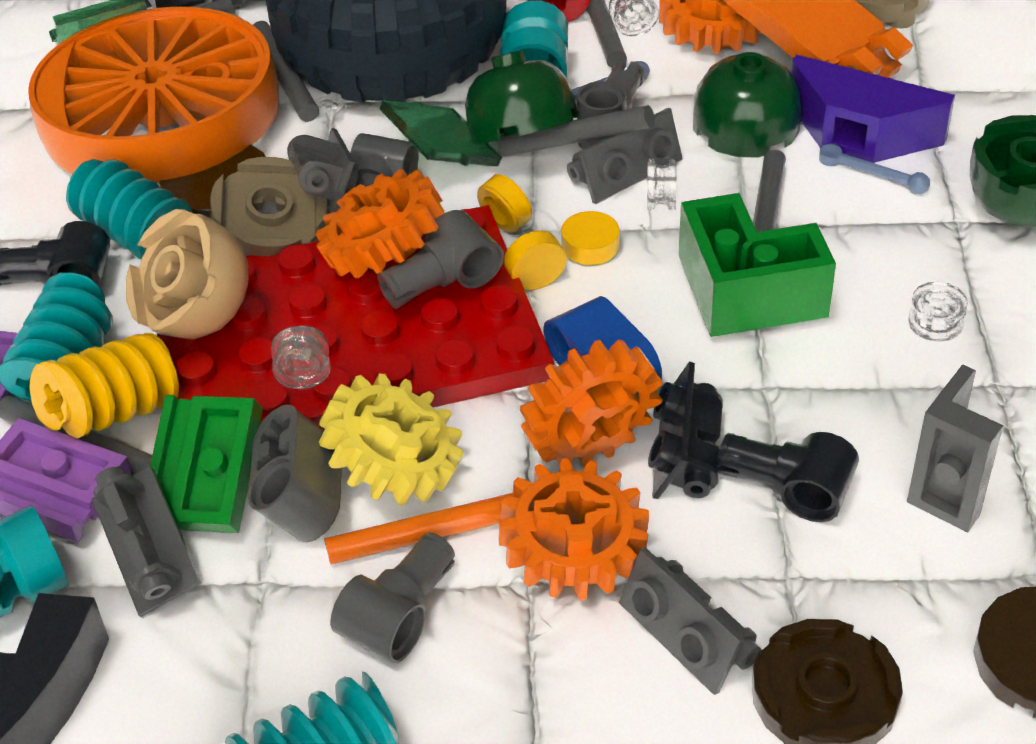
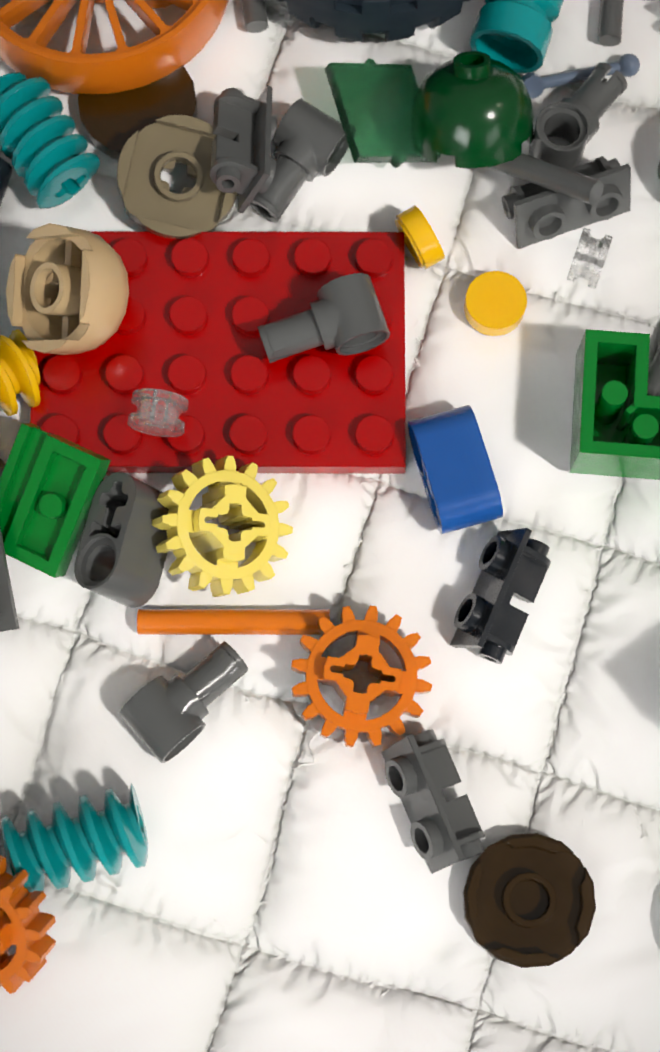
camera: 15 degrees right, 30 degrees up
(379, 223) = (305, 255): orange gear -> none
(535, 259) = (426, 327): yellow tile -> none
(591, 403) = (415, 557): orange gear -> none
(807, 475) = (597, 678): black pin -> none

